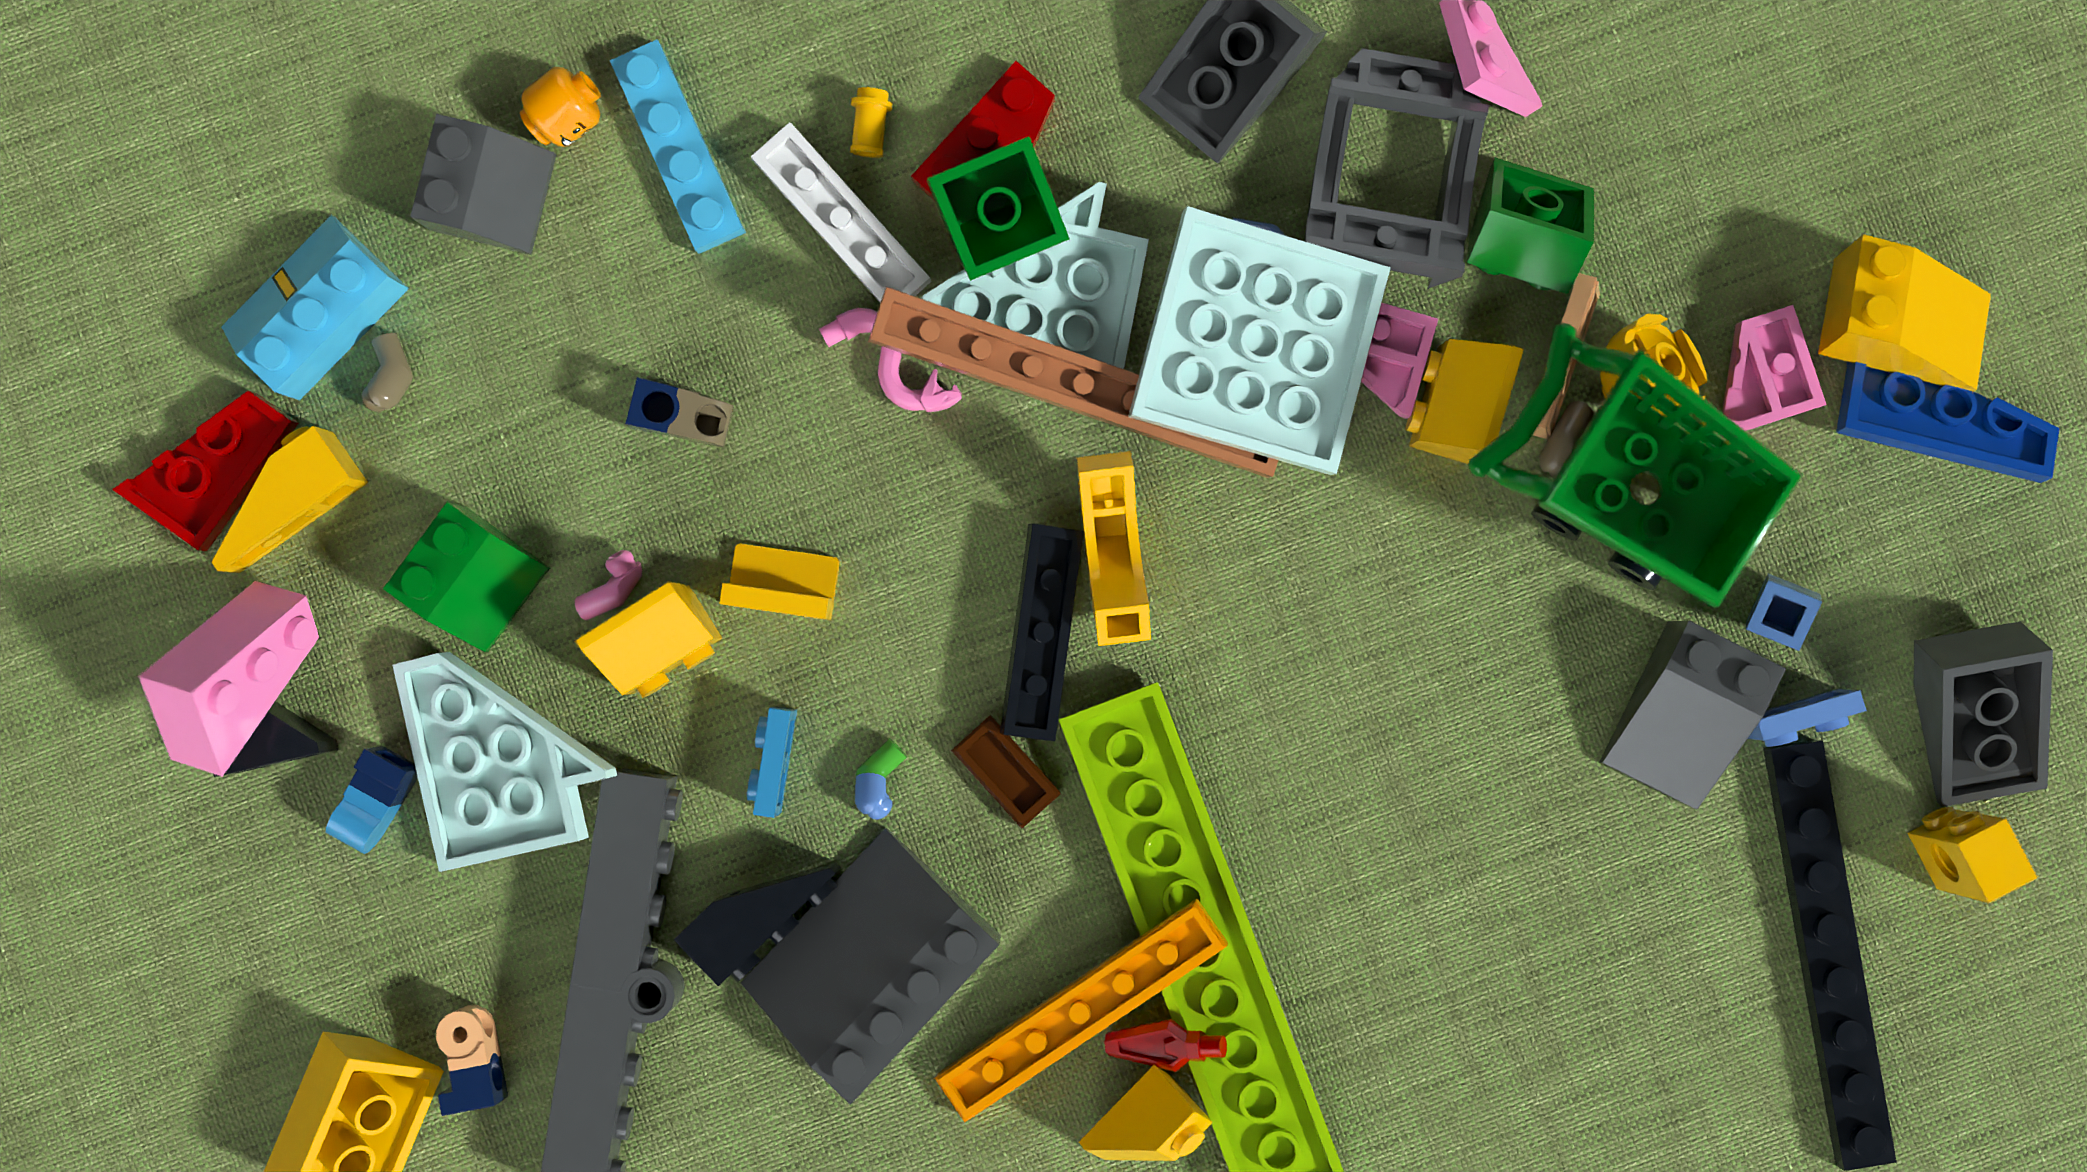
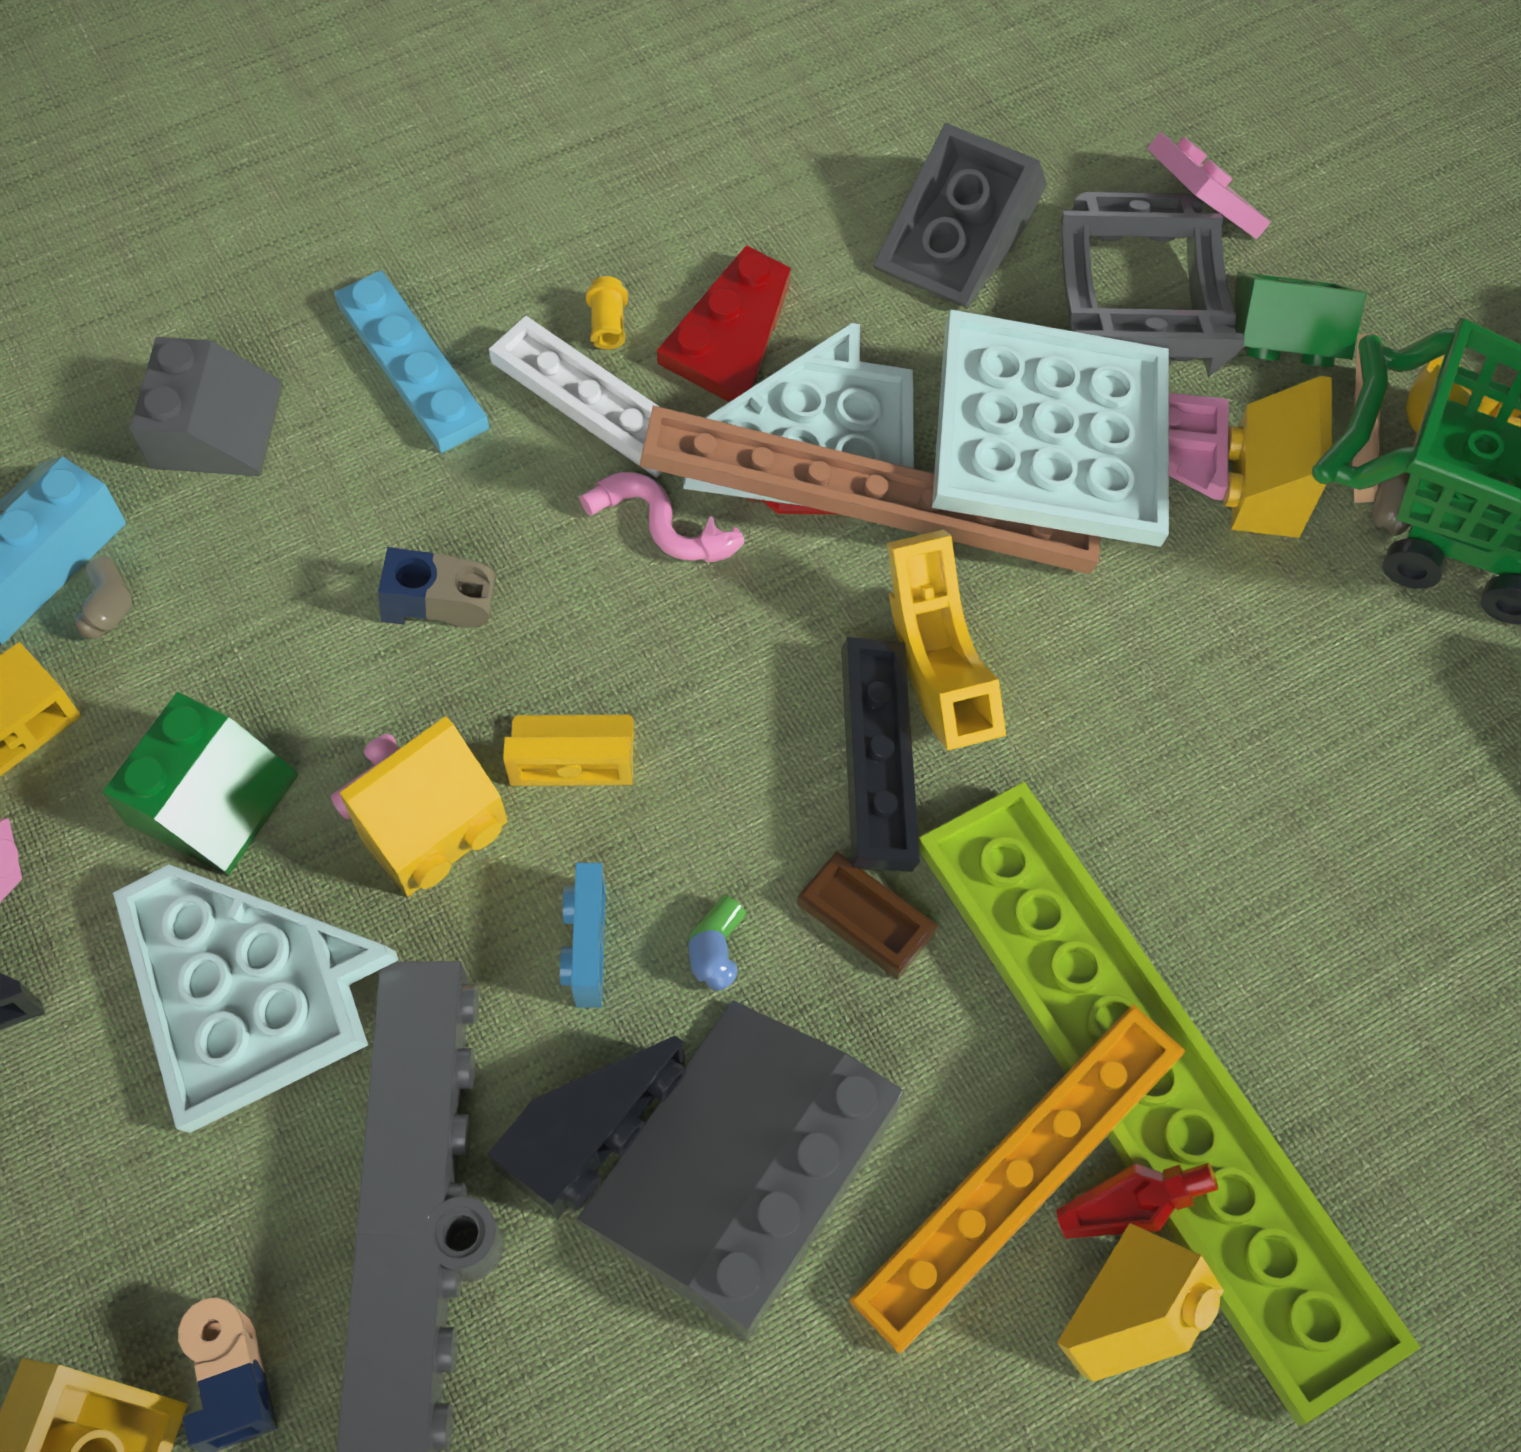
camera: 10 degrees left, 25 degrees down
(372, 798) = (88, 1053): leg -> none
(560, 107) = (286, 332): light orange head -> none
(998, 208) = (751, 338): green slope -> none

